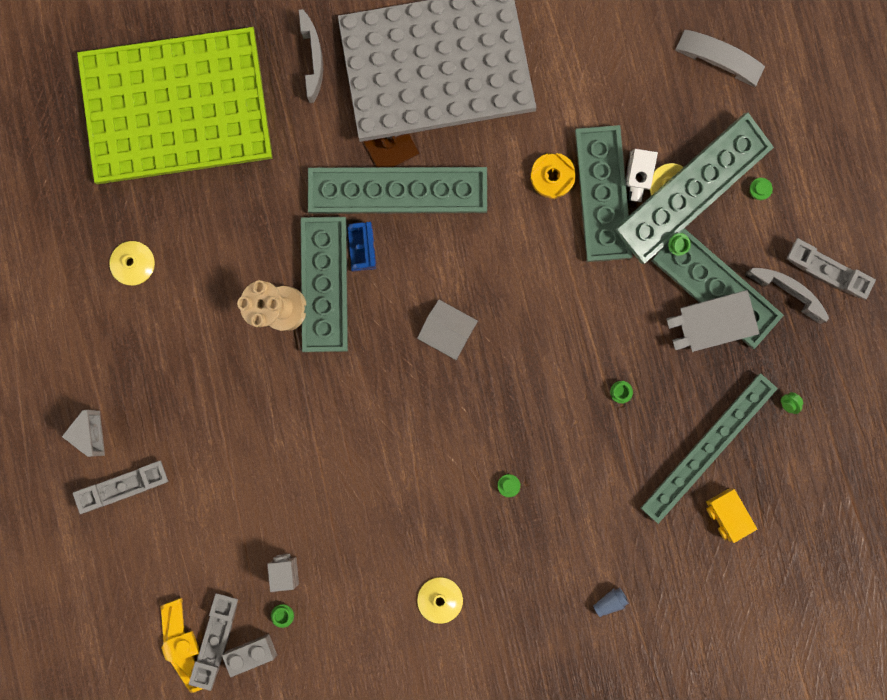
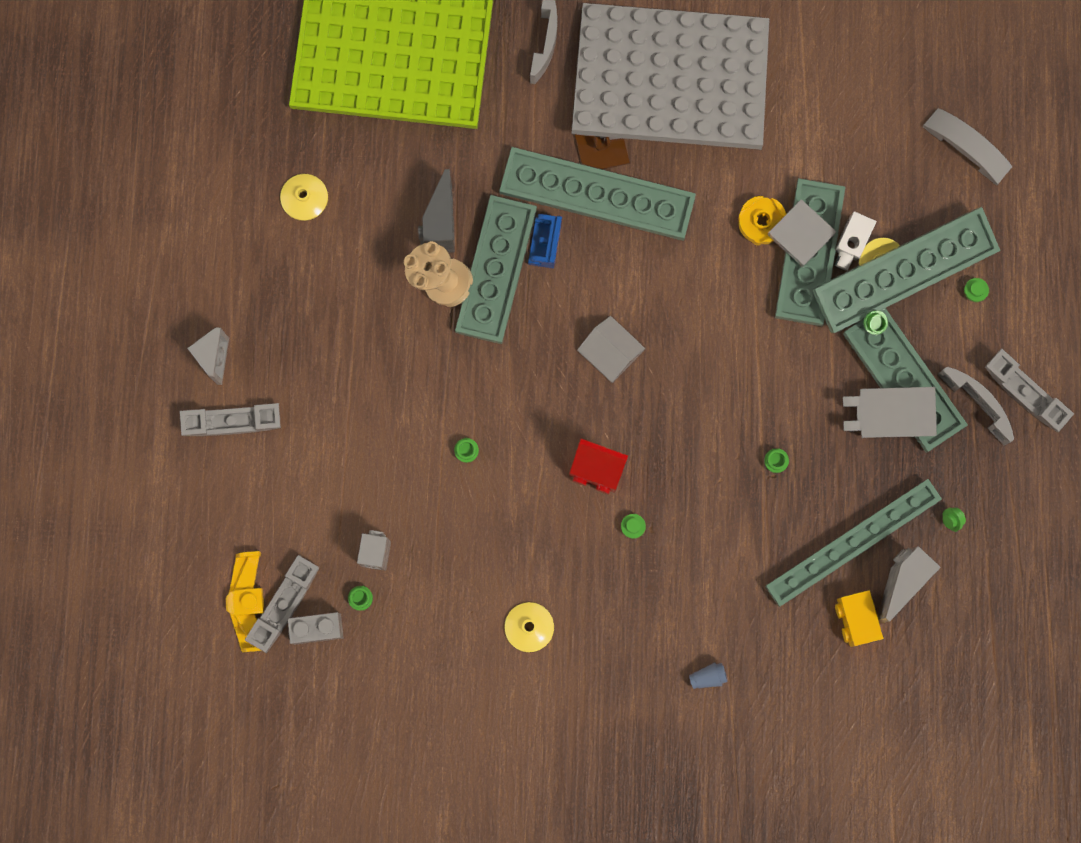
camera: 15 degrees right, 5 degrees down
(259, 251) = (438, 217): none -> dark grey slope
(341, 457) = (466, 450): none -> bright green plate
(464, 443) = (597, 466): none -> red slope
(592, 179) = (801, 233): none -> light grey tile
(764, 471) = (905, 579): none -> light grey slope

